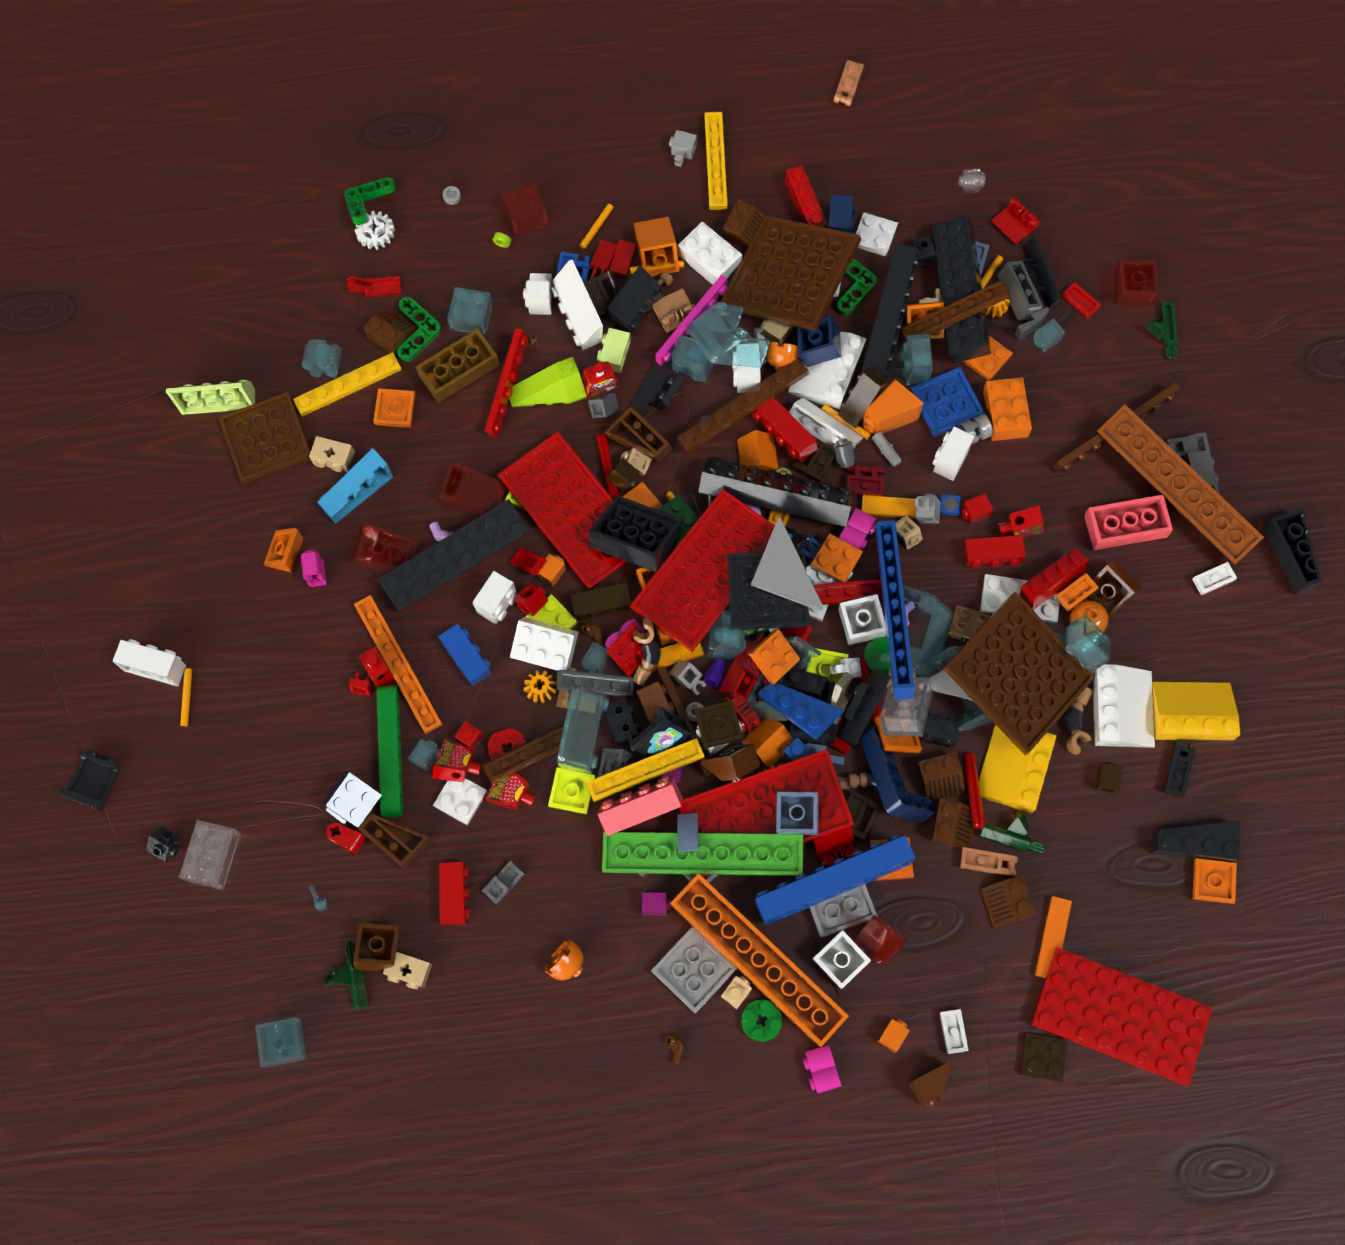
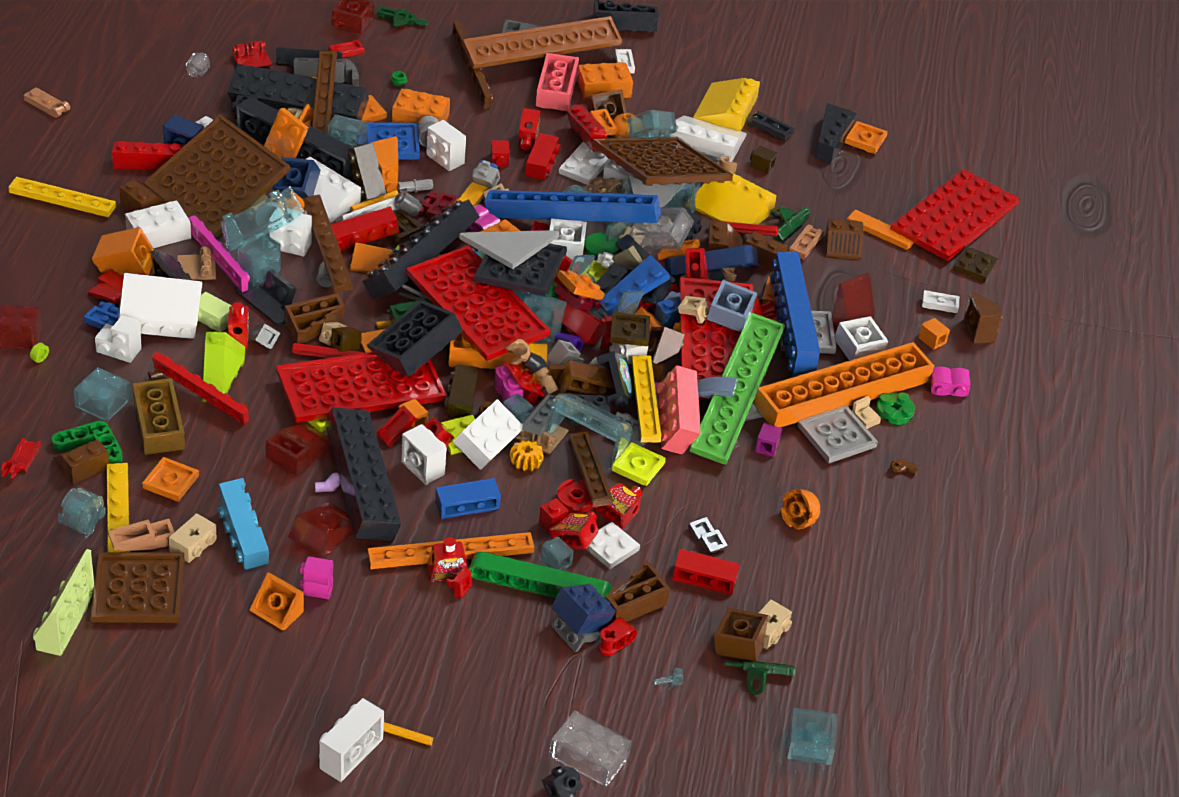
camera: 80 degrees left, 30 degrees down
(315, 415) = (142, 535): none -> nougat slope
(596, 226) = (70, 290): light orange bar -> none
(682, 146) = (32, 210): light grey brick -> none
(783, 776) = (694, 306): none -> tan bracket
(855, 761) = (696, 263): none -> red slope
(872, 306) = (286, 135): none -> orange plate
(1048, 335) = (368, 71): clear light blue brick -> none
(1055, 368) = (398, 78): none -> green plate
(1160, 570) = (604, 78): none -> orange brick

